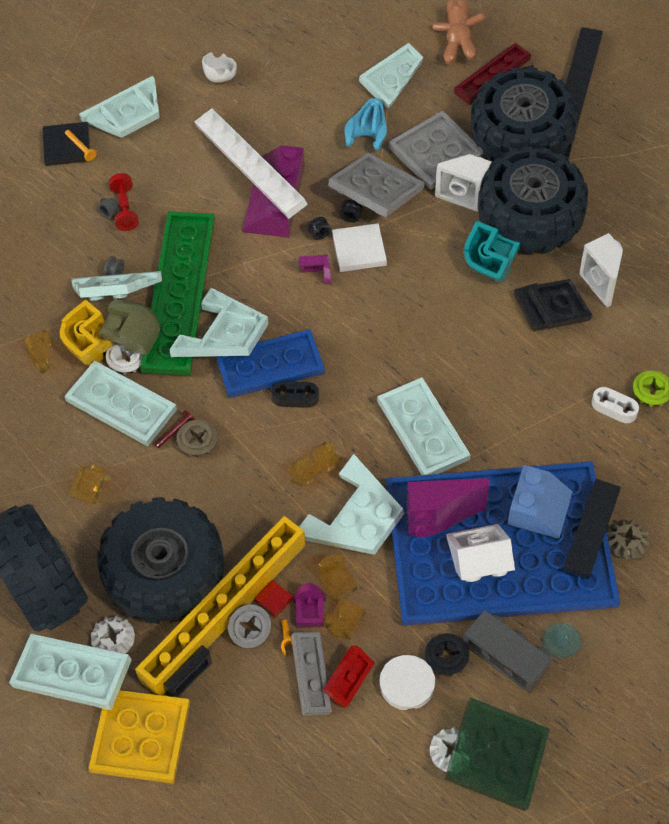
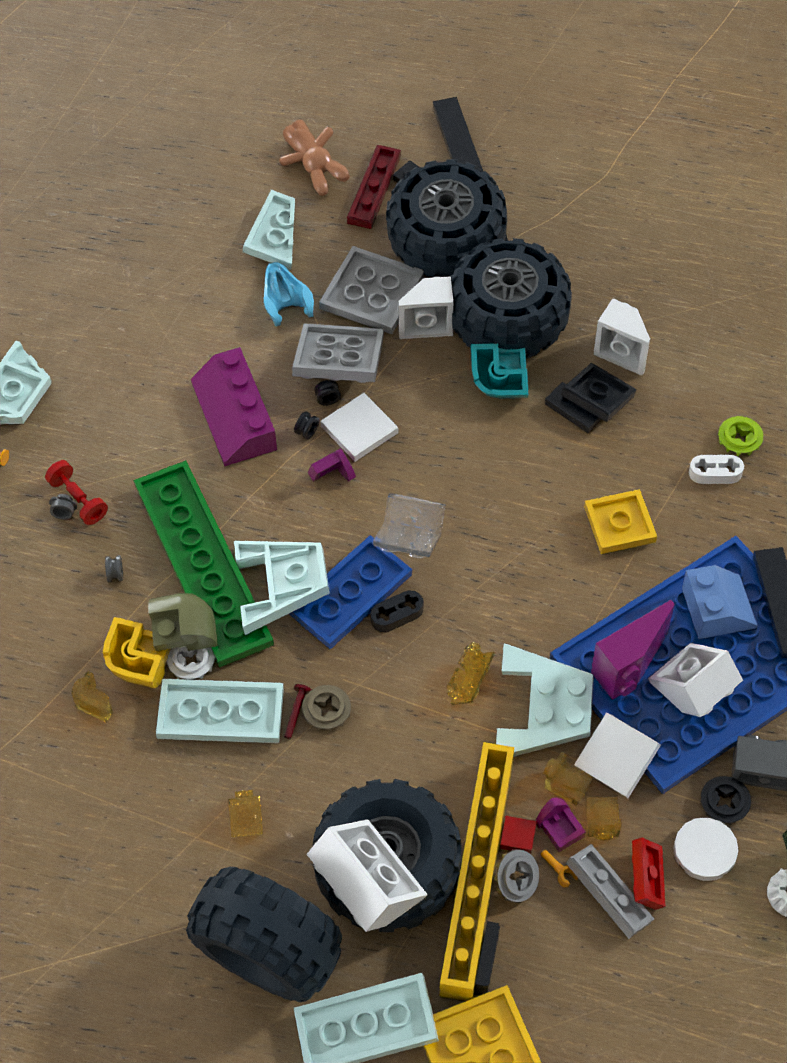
camera: 30 degrees left, 0 degrees up
(115, 285) = (129, 588): light aqua wing -> none
(123, 559) = (365, 874): none -> white slope
(124, 639) = (377, 948): white gear -> none
(218, 68) = (84, 301): white hair -> none
(251, 163) = (194, 388): white plate -> none
(344, 337) = (410, 526): none -> clear bracket
(383, 578) = (617, 755): none -> white tile
(423, 428) = (550, 582): light aqua plate -> none
(509, 408) = (620, 521): none -> yellow plate

